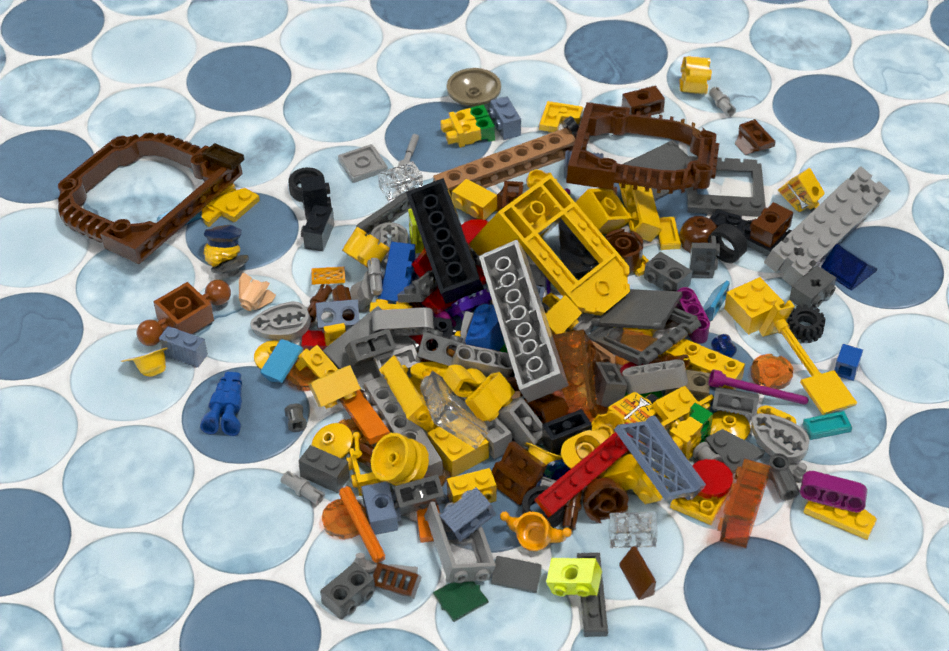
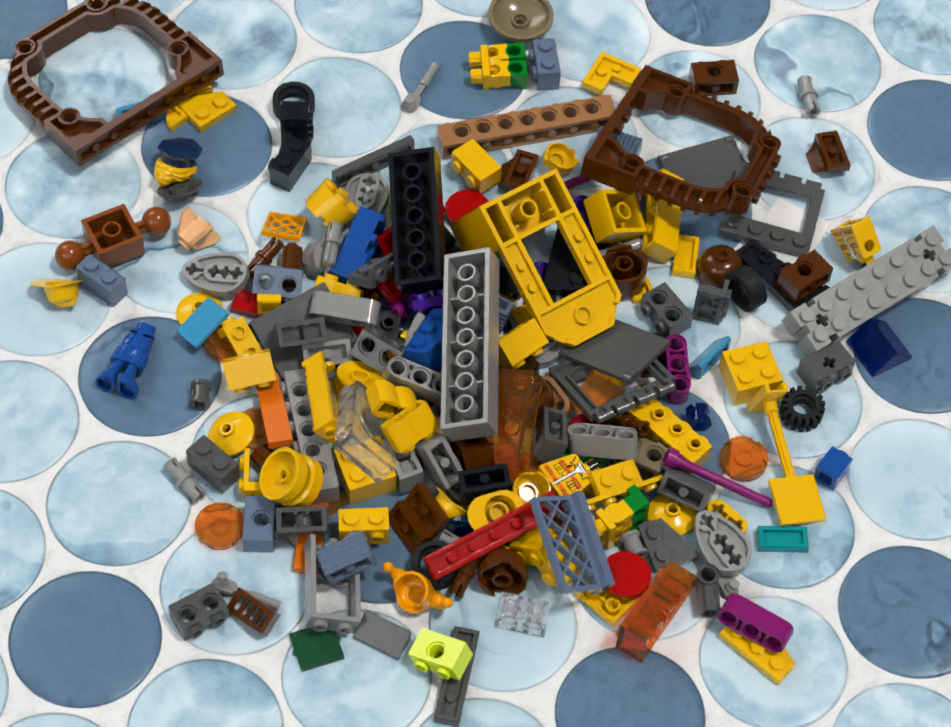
camera: 10 degrees right, 10 degrees up
(223, 156) = (204, 52): dark brown tile -> none
(357, 453) = (251, 456): yellow hinge -> none
(362, 163) = (365, 87): light grey tile -> none
(362, 524) = (234, 539): orange axle -> none
(399, 180) = (400, 121): clear brick -> none
(570, 124) = (616, 92): black beam -> none
(638, 574) = (511, 666): reddish brown slope -> none
(695, 74) = (786, 55): yellow brick -> none

